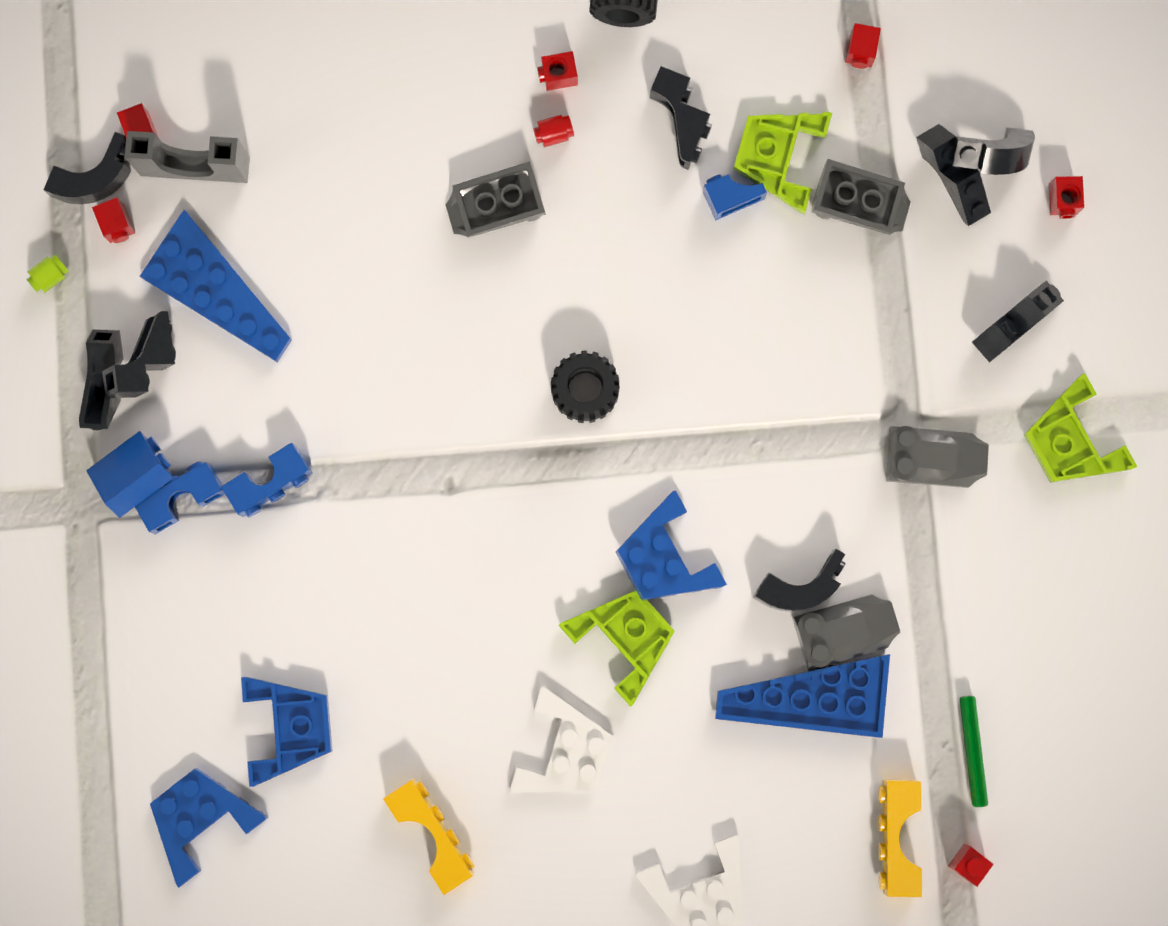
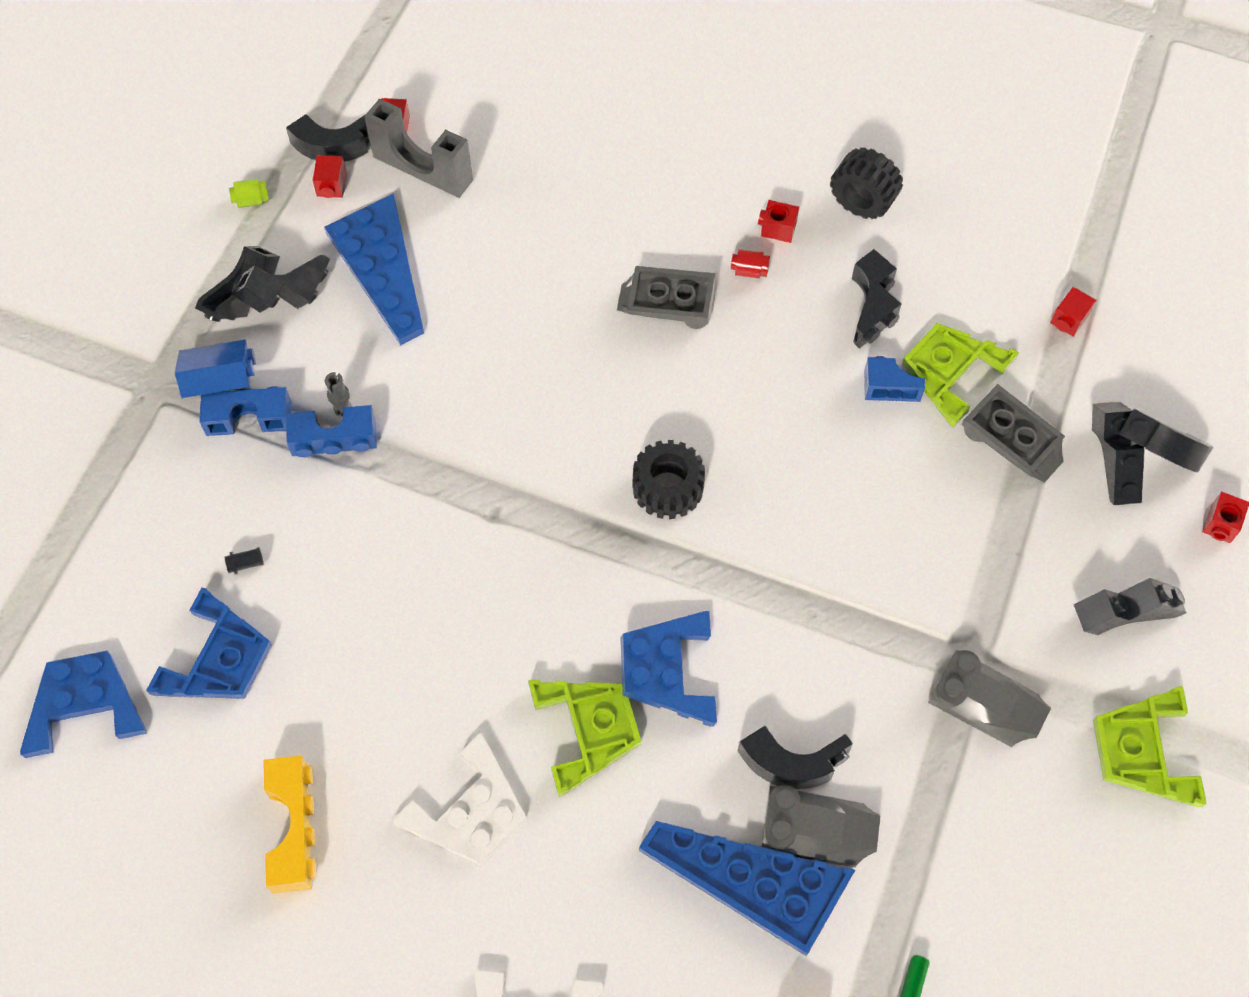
camera: 25 degrees right, 20 degrees down
(256, 446) = (337, 392): none -> dark grey pin
(260, 634) = (243, 560): none -> black pin

